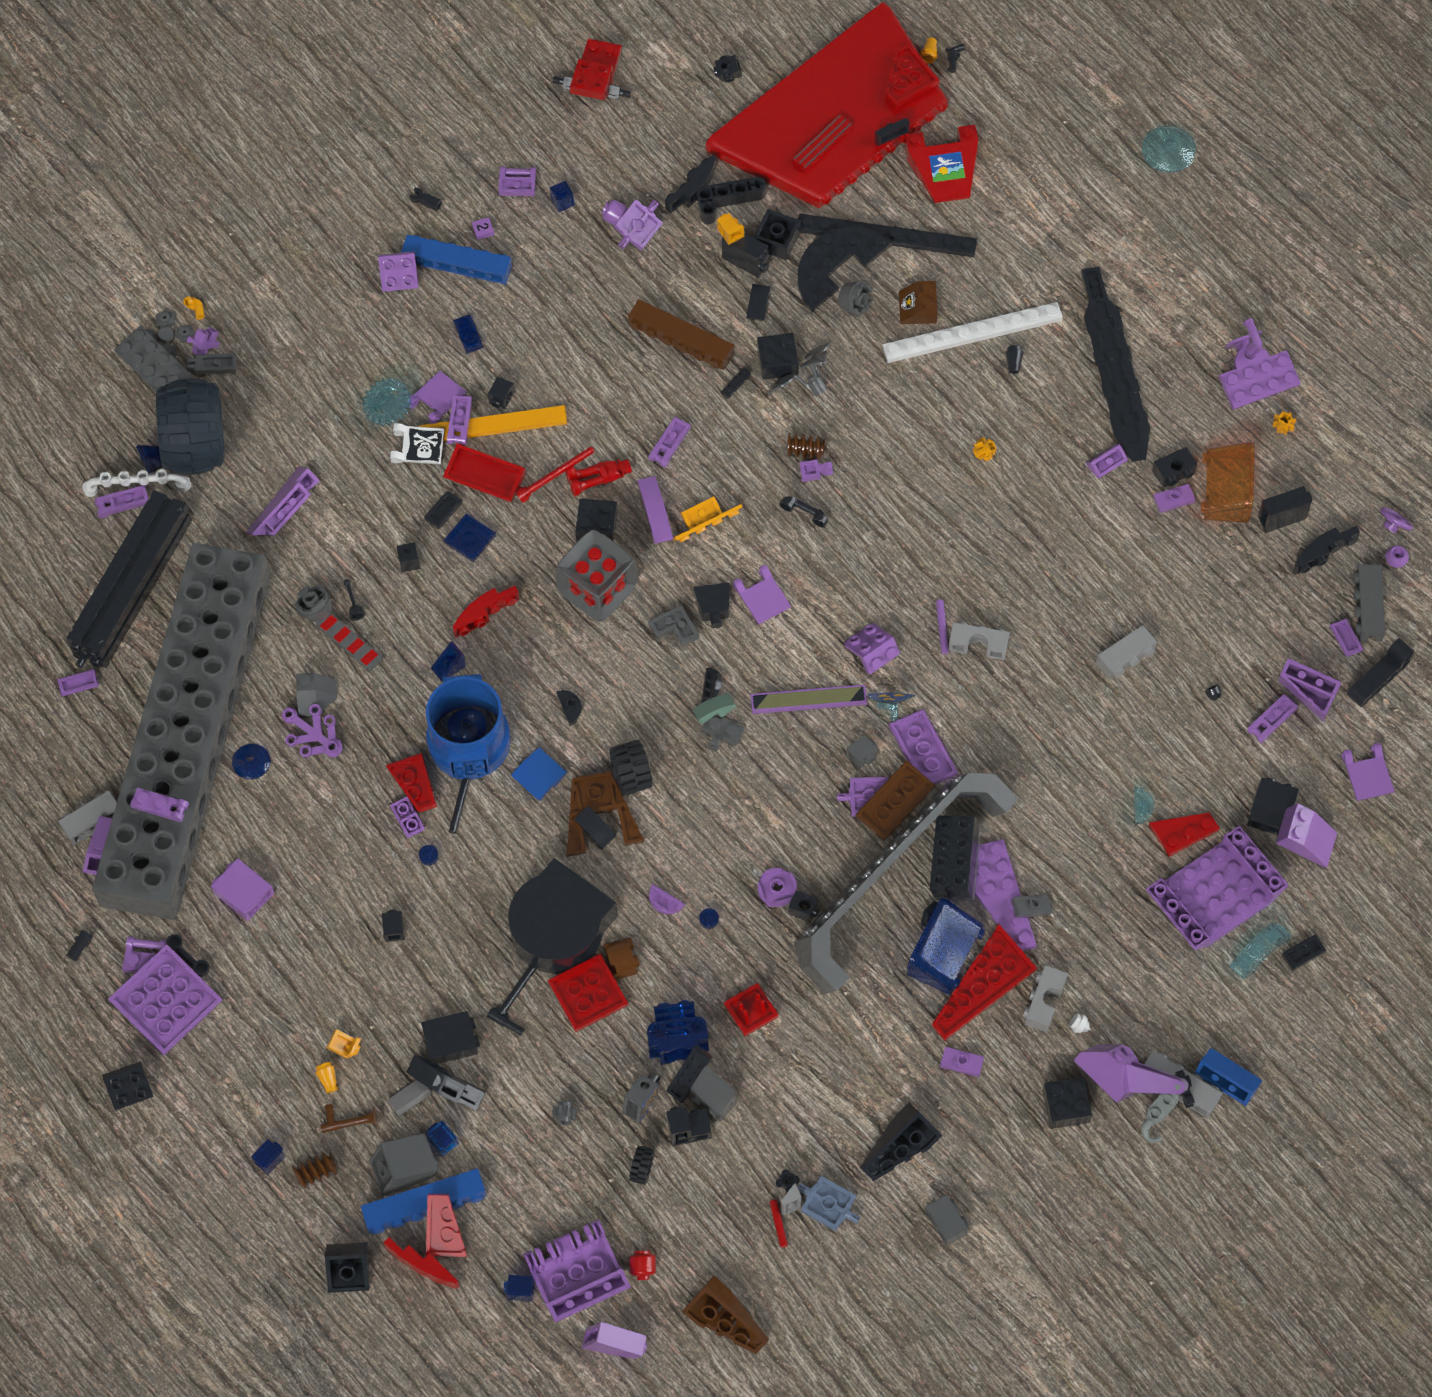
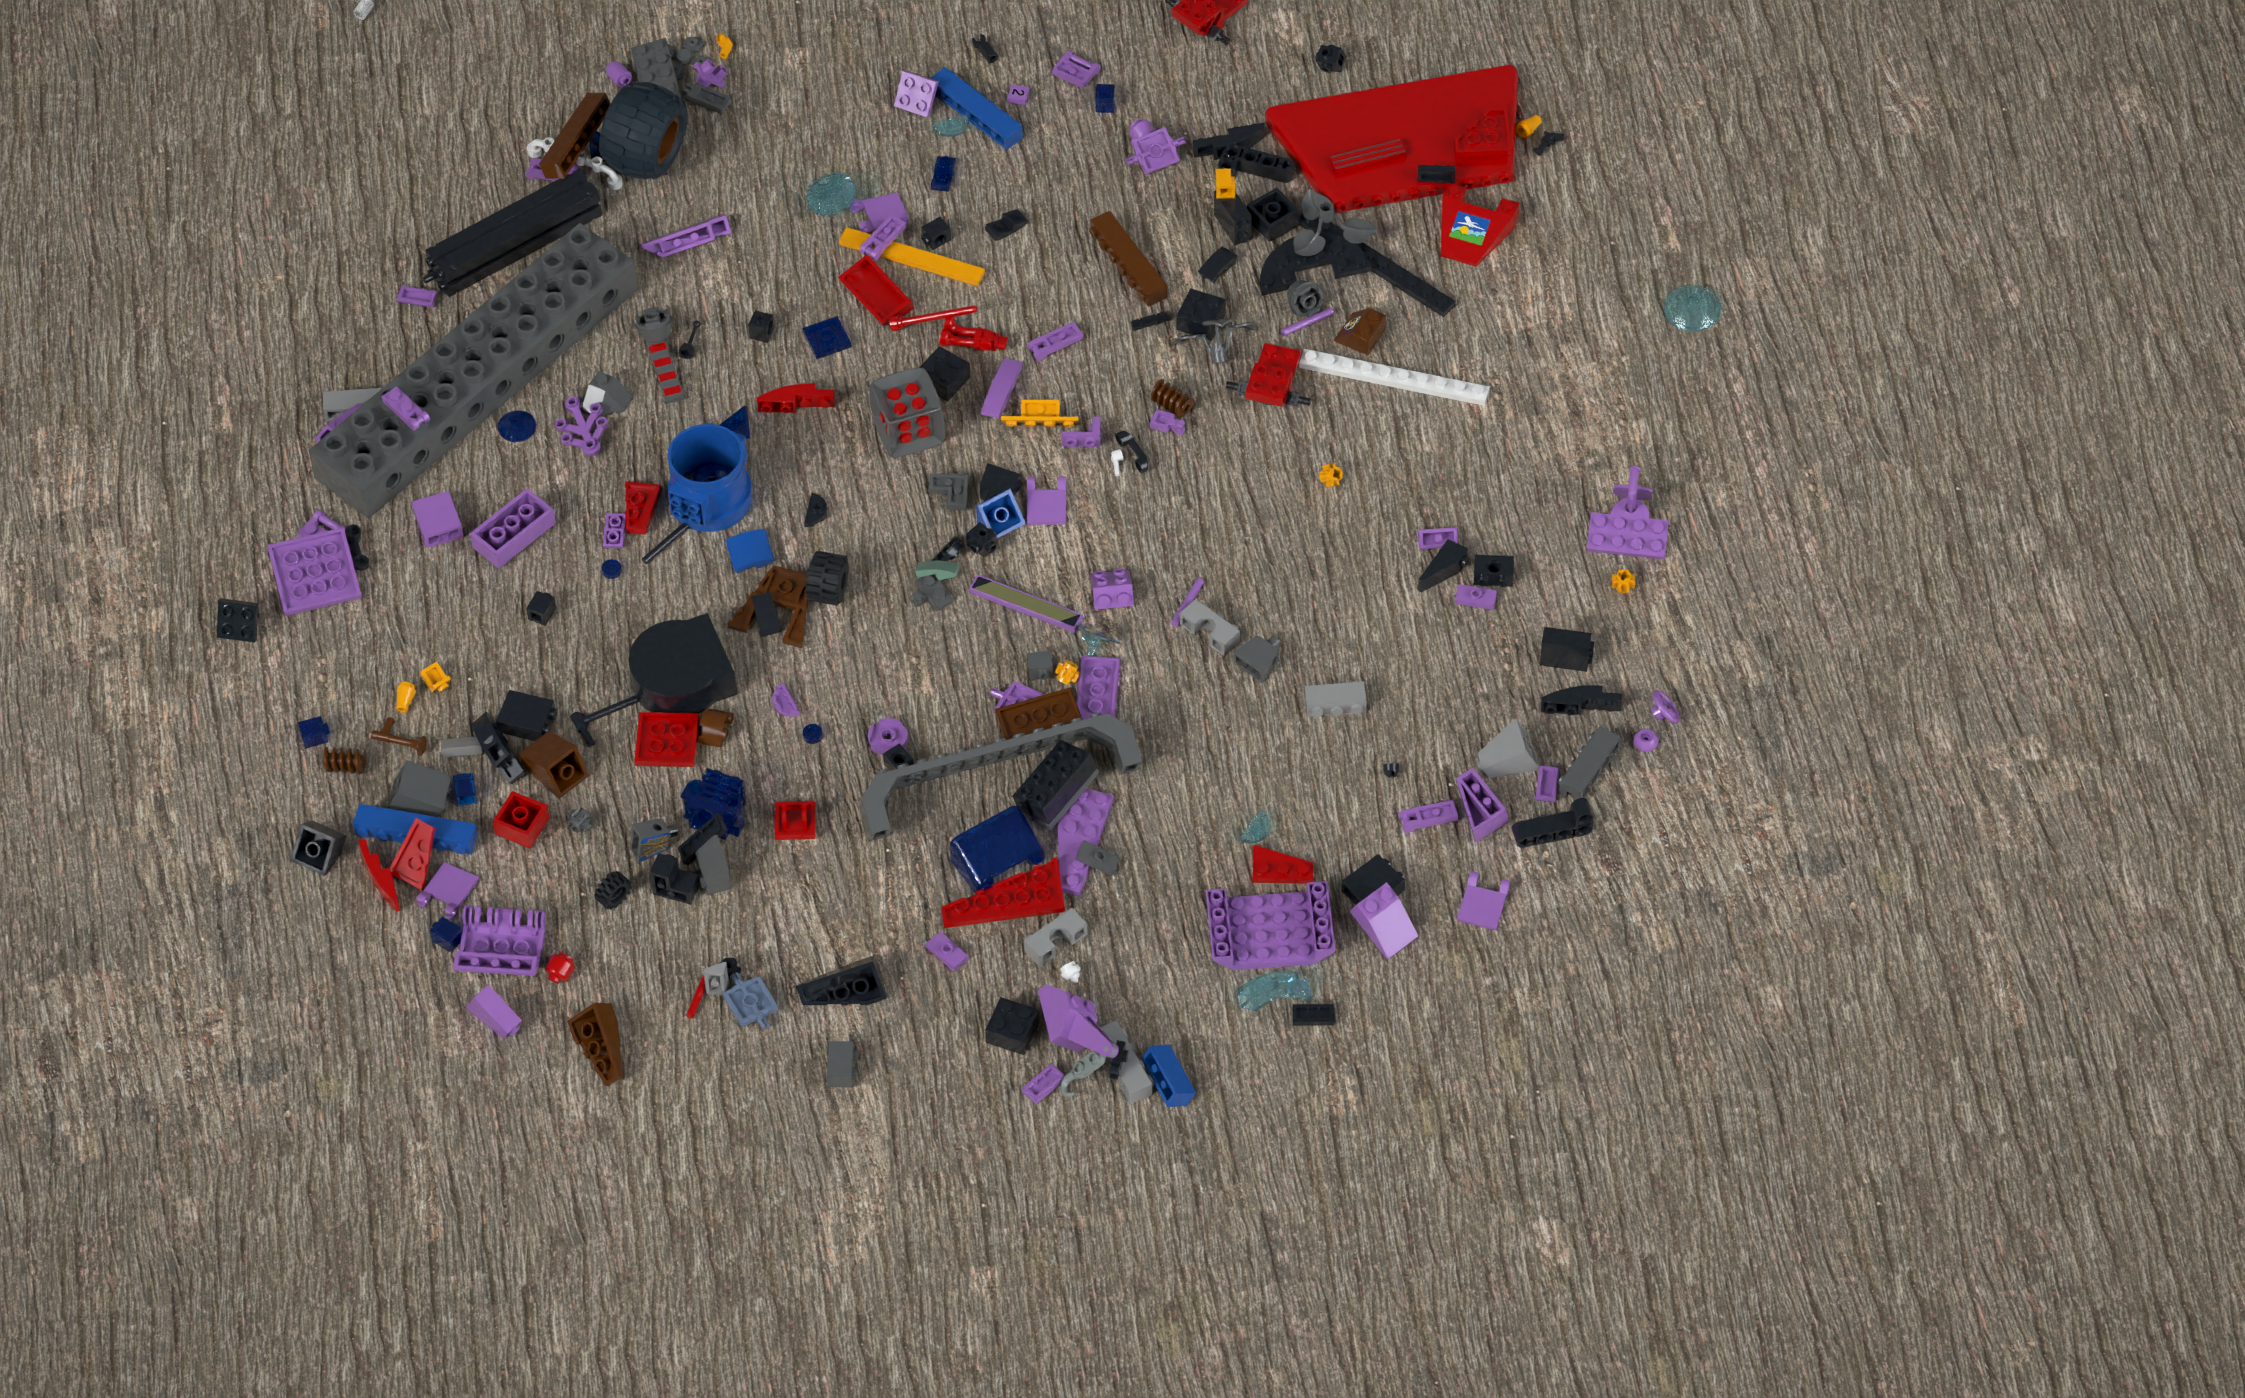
camera: 30 degrees right, 10 degrees down
(80, 943) = (275, 497): black pin -> none
(119, 379) = (618, 74): none -> medium lavender brick
(129, 460) = (575, 136): none -> reddish brown brick
(318, 863) = (512, 528): none -> medium lavender brick
(419, 444) = (835, 243): flag -> none
(443, 510) = (819, 304): black plate -> none
(445, 287) = (952, 126): none -> clear light blue plate
(490, 1238) = (450, 886): none -> medium lavender flag
(505, 1070) = (555, 763): none -> reddish brown slope
(514, 1141) = (521, 819): none -> red brick
(554, 354) = (1008, 224): none -> black slope
(734, 630) = (1000, 513): none -> blue slope
(735, 660) = (981, 540): none -> black brick
(762, 517) = (1084, 439): none -> medium lavender bracket
(792, 524) = (1116, 456): none -> white hand
(827, 246) = (1316, 205): none -> dark grey plant
(874, 307) = (1308, 321): none -> medium lavender bar
(877, 385) = (1272, 378): none -> red piece
(889, 746) = (1067, 672): none -> light orange gear
(1014, 358) = (1414, 415): black cone -> none
(1037, 647) = (1258, 657): none -> dark grey torso
(1114, 363) = (1503, 462): black plate -> none
(1127, 1141) = (1043, 1084): none -> medium lavender plate
(1132, 479) = (1444, 565): none -> black slope
(1229, 483) = (1532, 604): clear orange windscreen -> none
(1300, 628) = (1508, 753): none -> light grey slope

